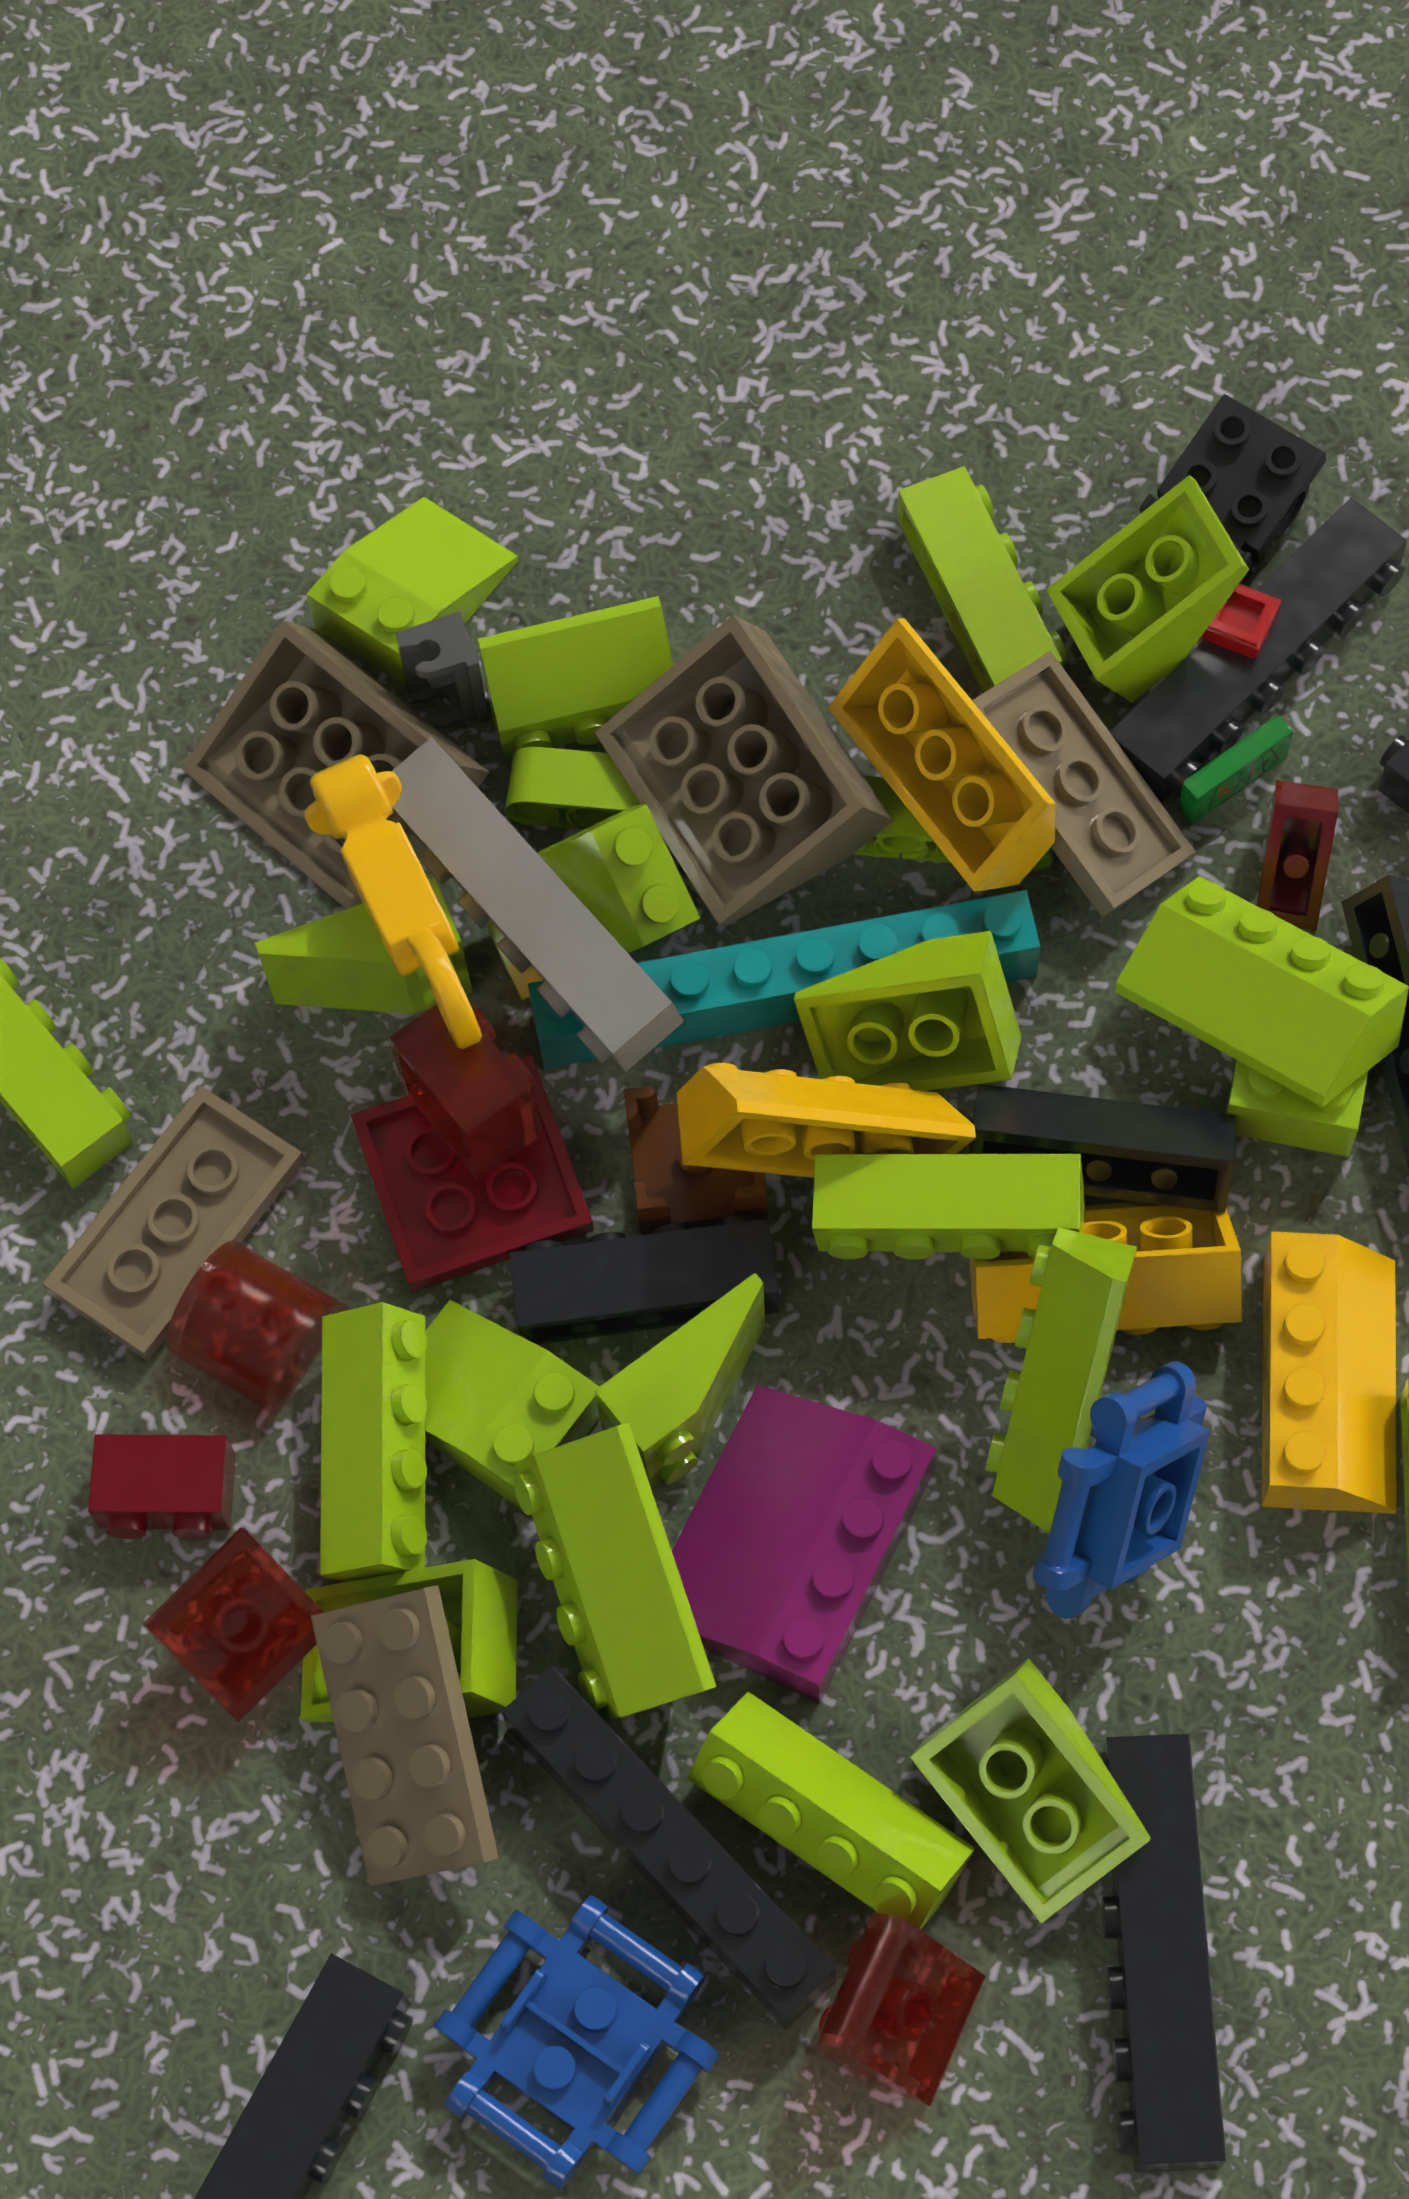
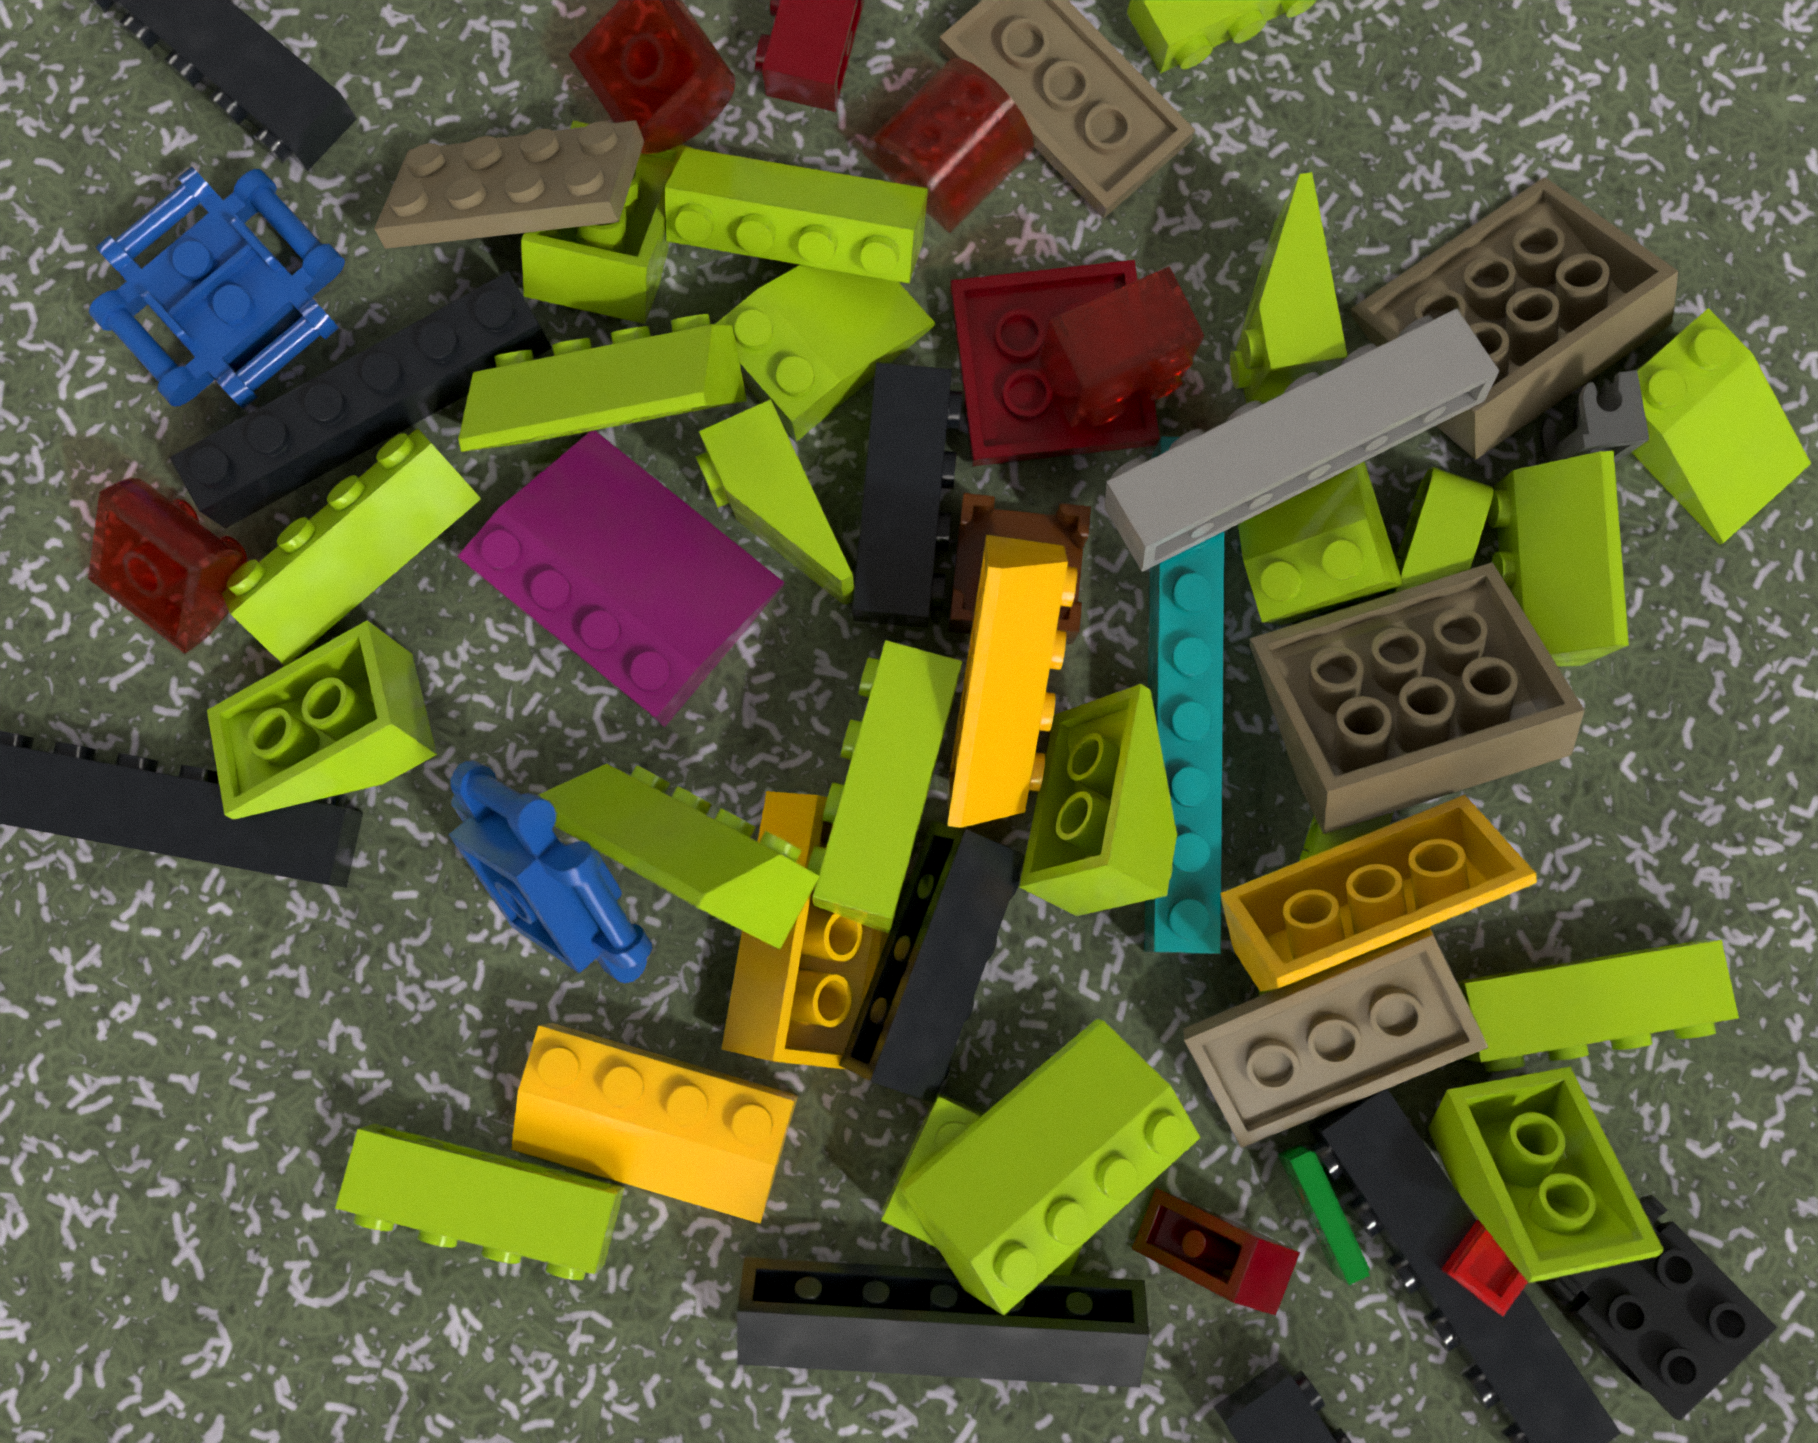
camera: 95 degrees right, 15 degrees up
(391, 882) = (1327, 296): yellow animal -> none

